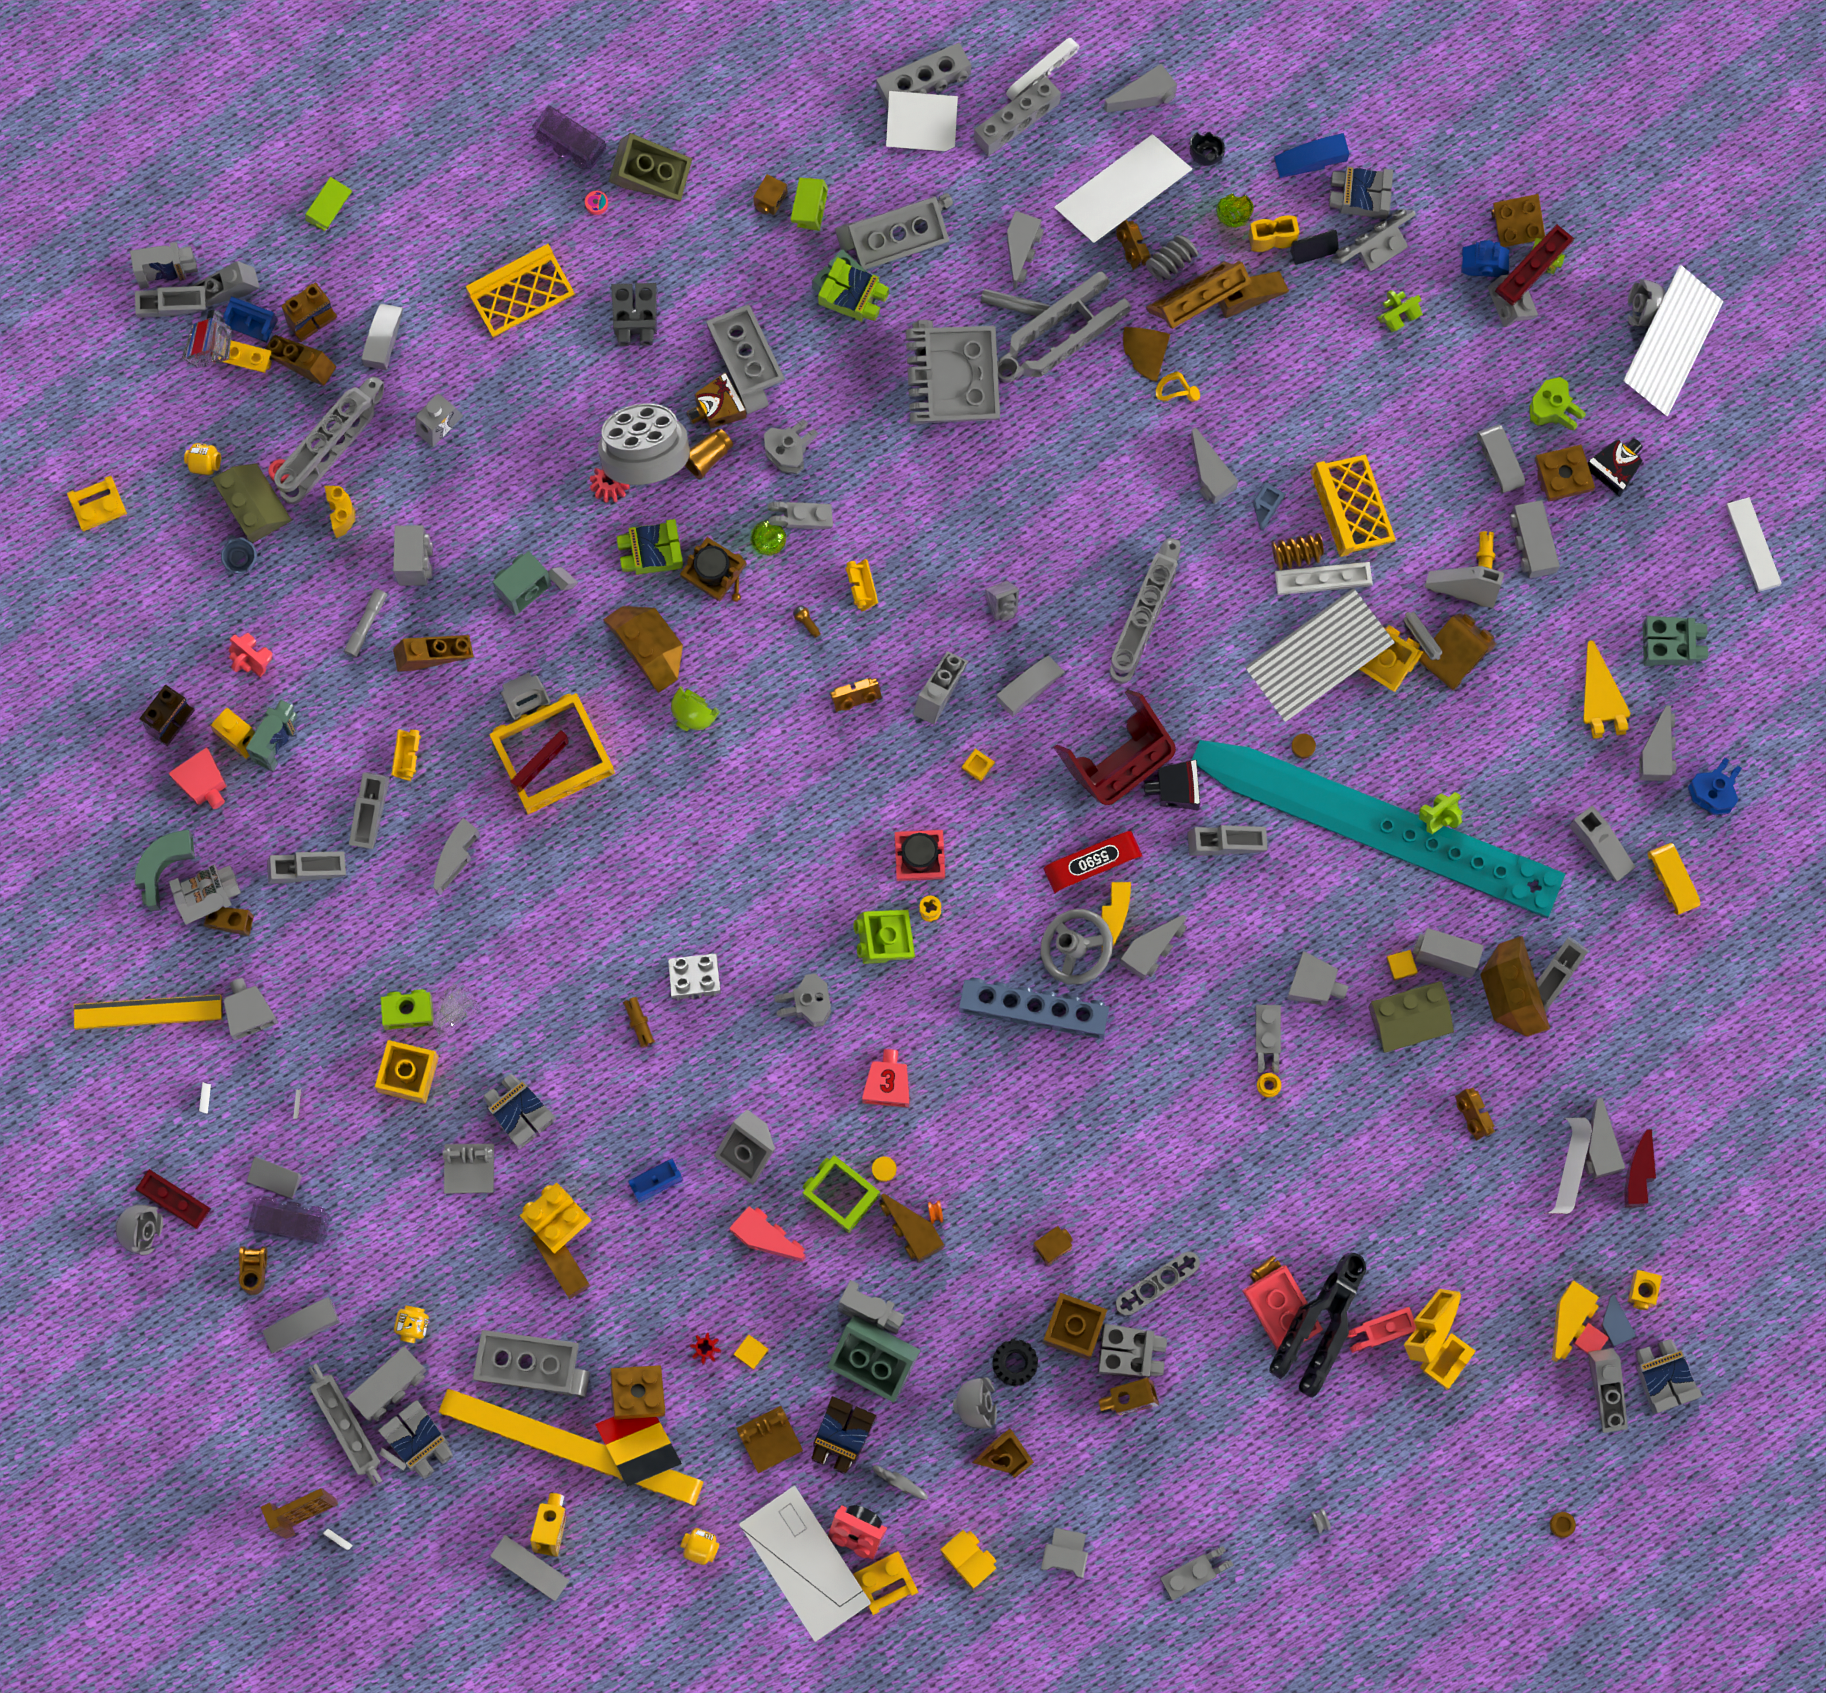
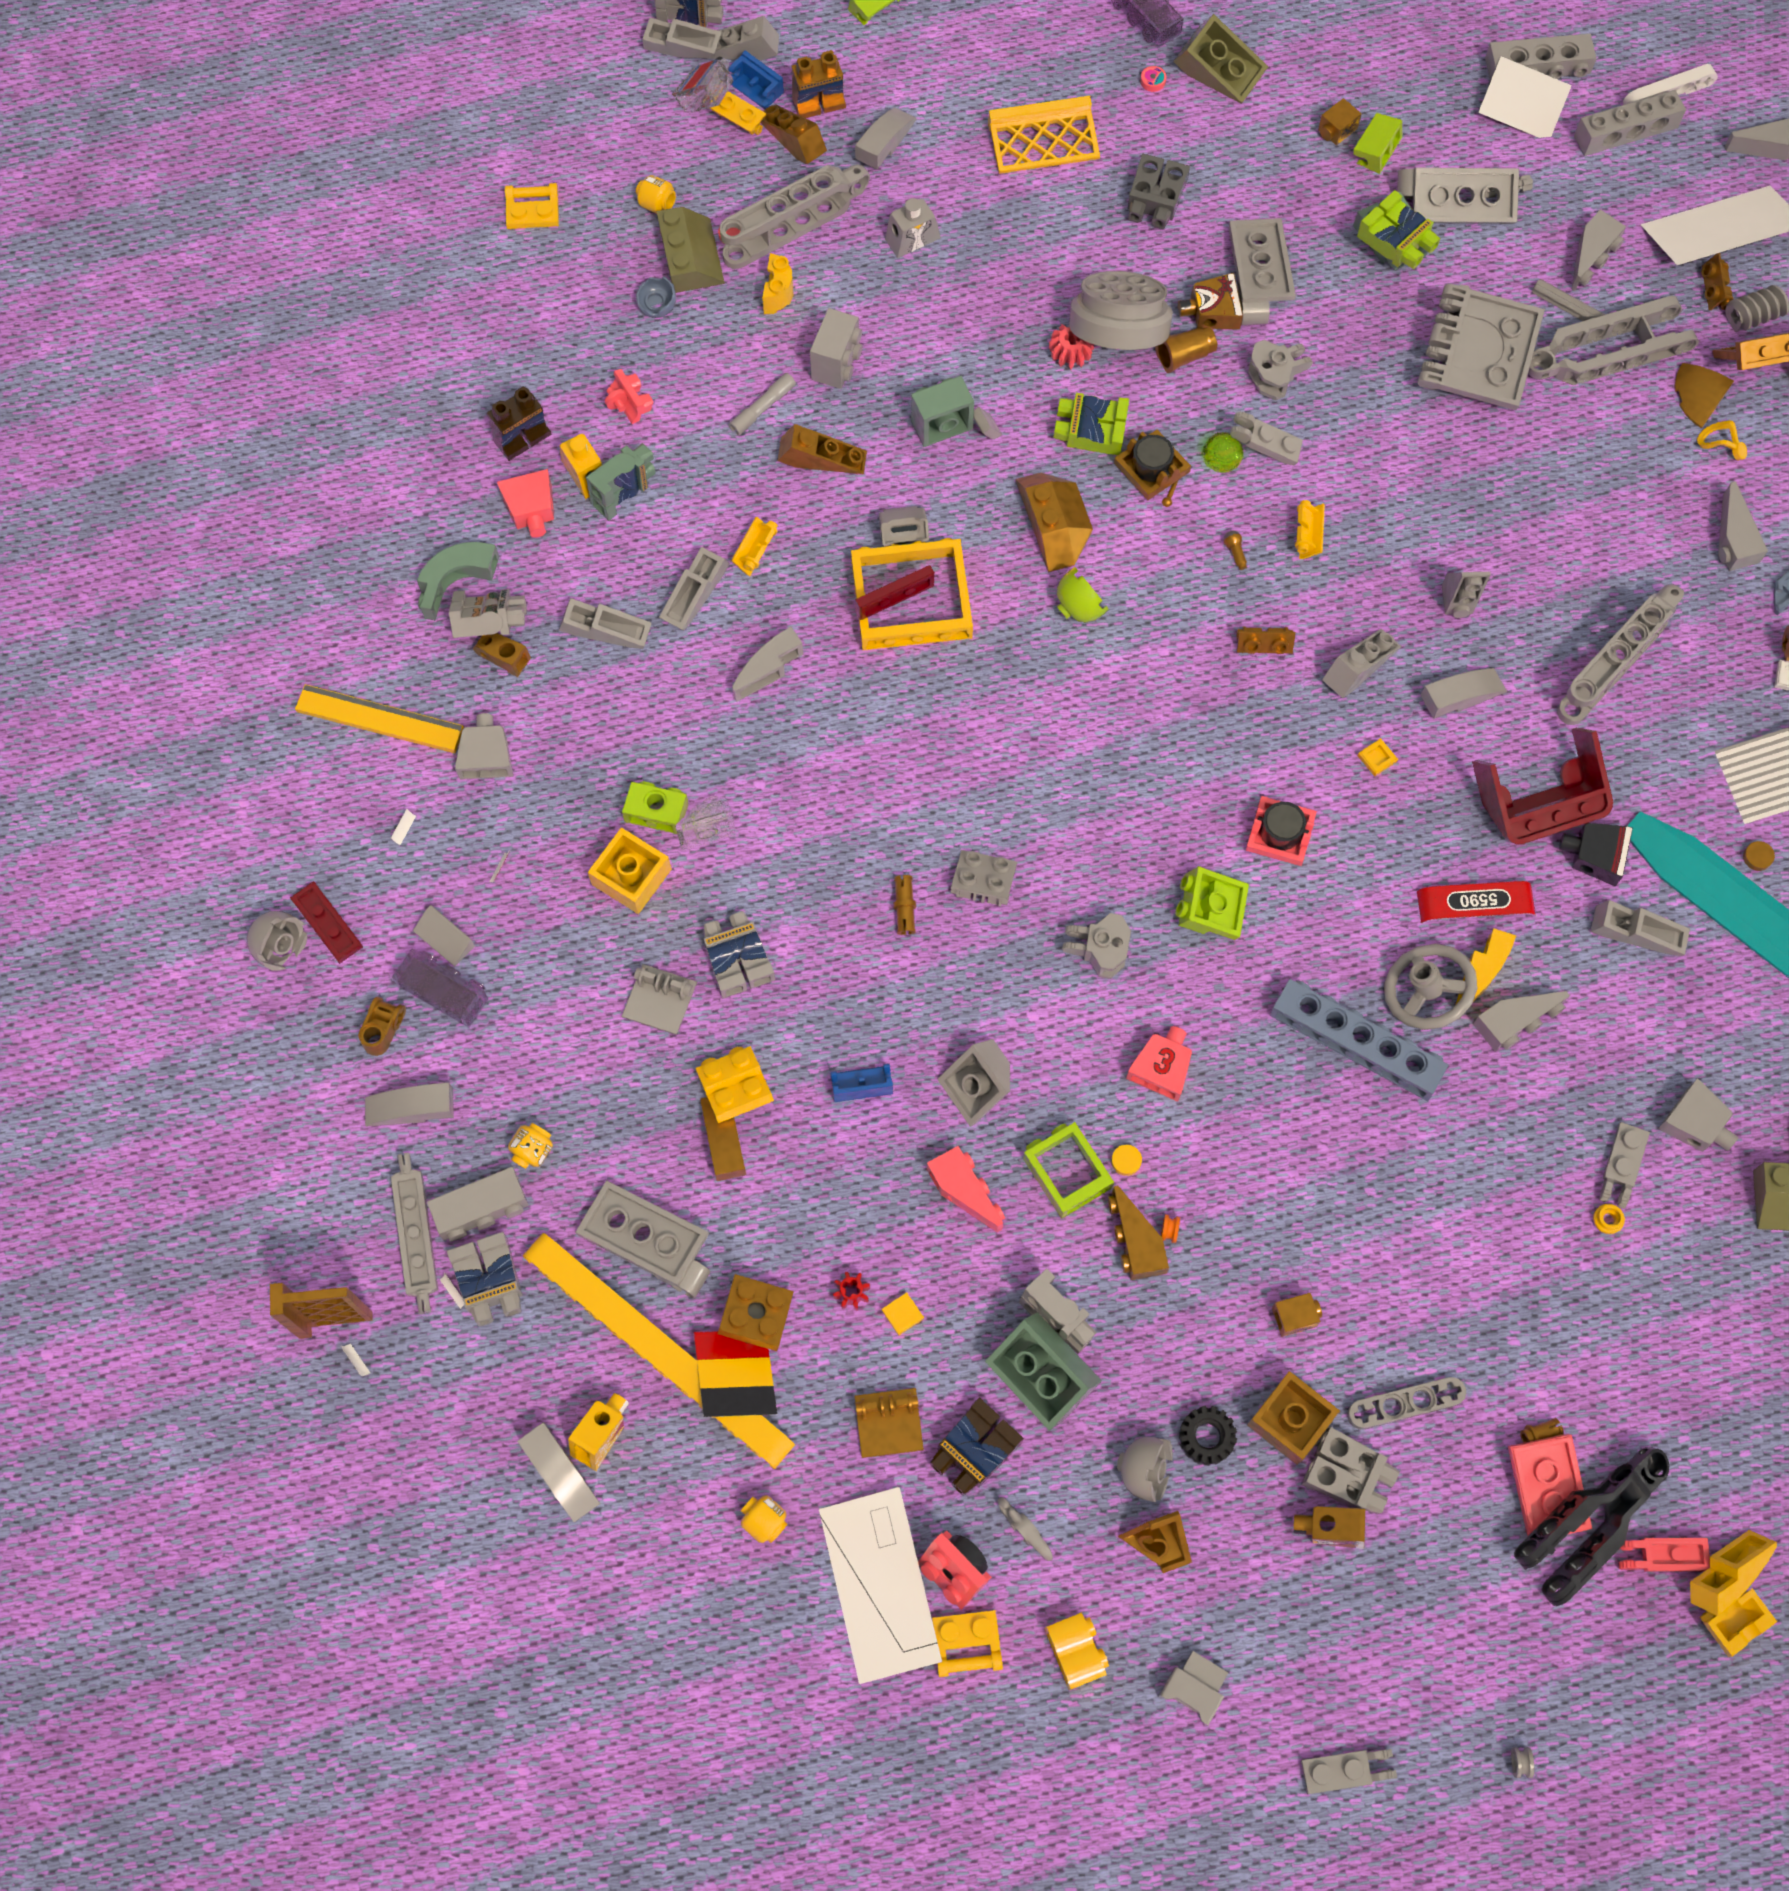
camera: 20 degrees right, 5 degrees down
(927, 901) = (1271, 883): yellow bush -> none

